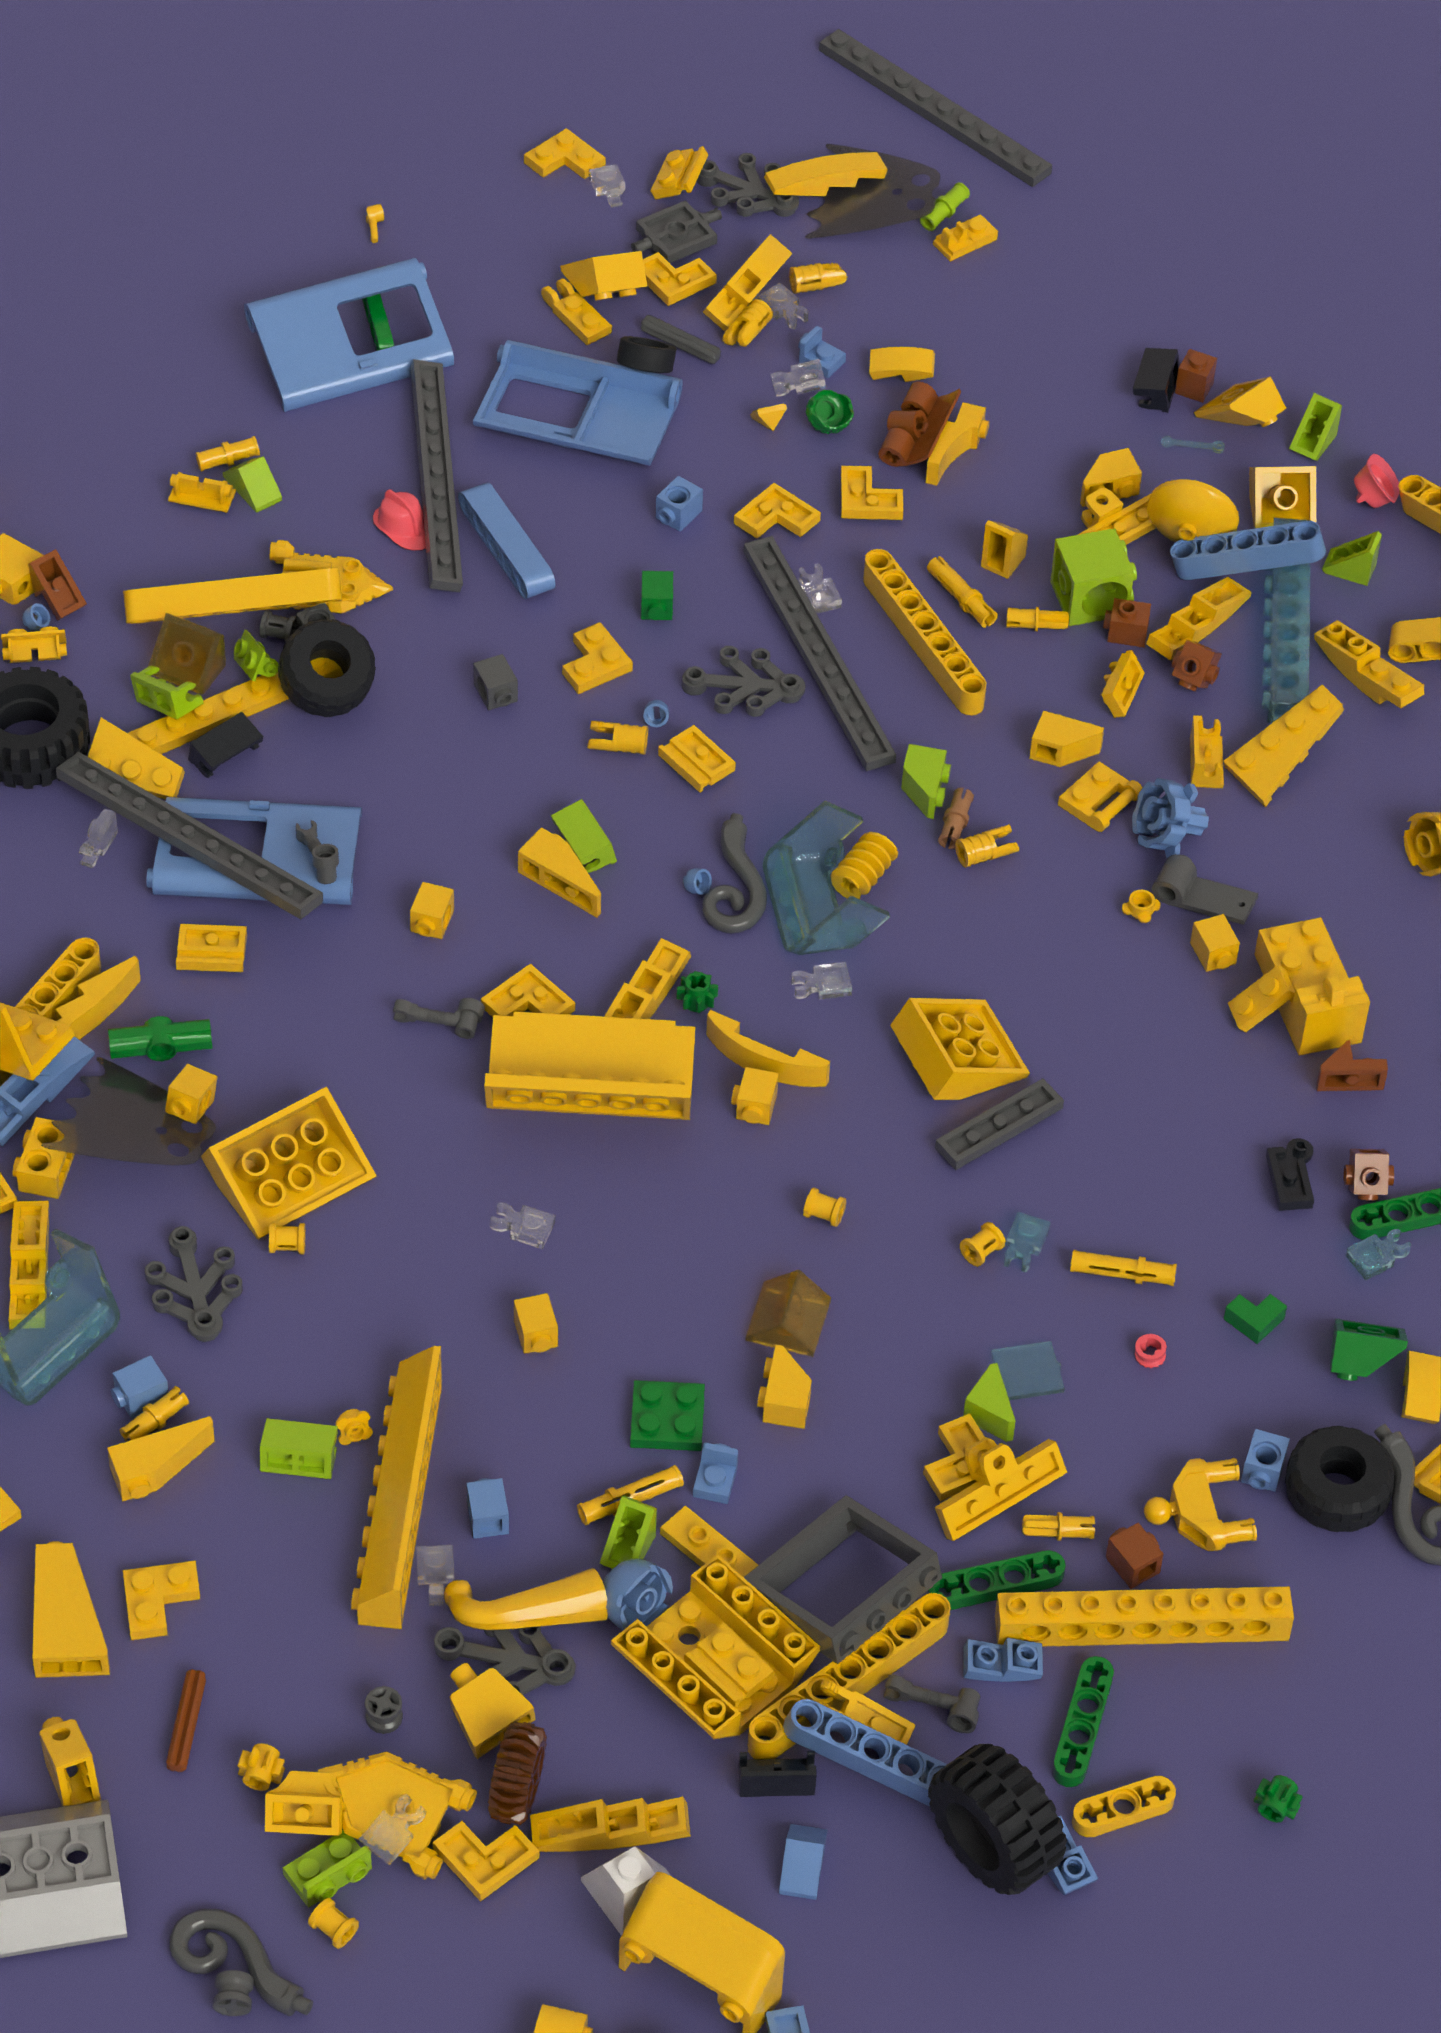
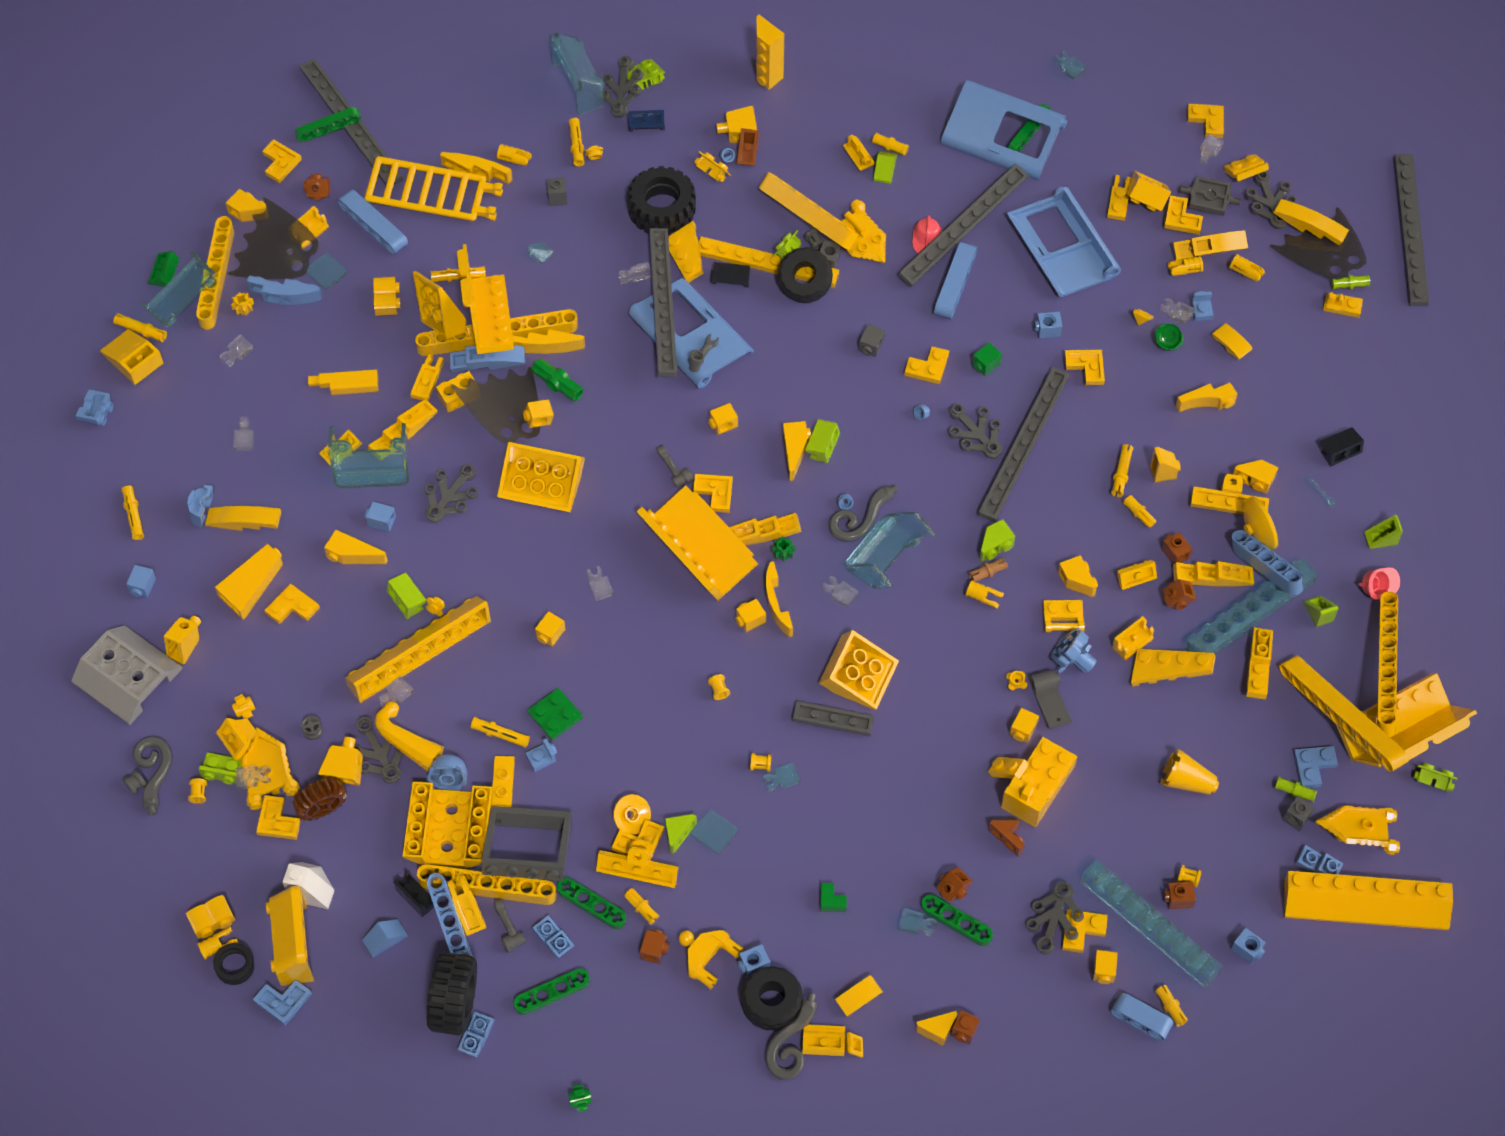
camera: 50 degrees right, 10 degrees up
(155, 1415) = (372, 533): yellow pin -> none
(162, 695) = (734, 231): lime hinge -> none
(186, 1720) = (243, 663): dark orange axle -> none
(188, 653) = (763, 223): clear yellow slope -> none
(211, 947) = (622, 358): yellow plate -> none
(287, 1238) = (503, 506): yellow bush -> none
(334, 211) = (1072, 66): none -> clear light blue plate
(374, 215) = (1087, 80): yellow hand -> none
(487, 1508) = (442, 685): medium blue brick -> none
(612, 1826) = (333, 853): yellow slope -> none
(625, 737) = (893, 411): yellow hinge -> none
(630, 1532) = (476, 749): lime slope -> none
(646, 354) = (1118, 243): black tyre -> none
(680, 339) = (1149, 248): dark grey axle -> none
(697, 758) = (912, 447): yellow plate -> none
(729, 1665) = (446, 835): yellow plate -> none
(784, 305) = (1216, 269): clear plate -> none
(787, 1392) = (607, 748): yellow slope -> none
(789, 1313) = (651, 719): clear yellow slope -> none
(820, 592) = (1059, 417): clear plate -> none
(863, 501) = (1133, 390): yellow plate -> none
(863, 865) = (919, 555): yellow piece -> none
(914, 1434) = (639, 811): none -> yellow dish
(917, 425) = (1198, 375): dark orange panel -> none
(924, 632) = (1080, 481): yellow beam -> none
(1091, 573) = (1183, 512): lime brick -> none
(1094, 1806) = (507, 1038): yellow beam -> none
(1123, 1267) = (808, 832): yellow pin -> none
(1145, 1616) = (624, 975): yellow brick -> none
(1150, 1360) = (771, 877): coral bush -> none
(1196, 375) = (1361, 459): dark orange brick -> none
(1245, 404) = (1366, 492): yellow slope -> none
(1282, 493) = (1325, 551): yellow slope -> none
(1290, 1174) = (924, 854): black hinge -> none
(1363, 1347) = (856, 954): green slope -> none

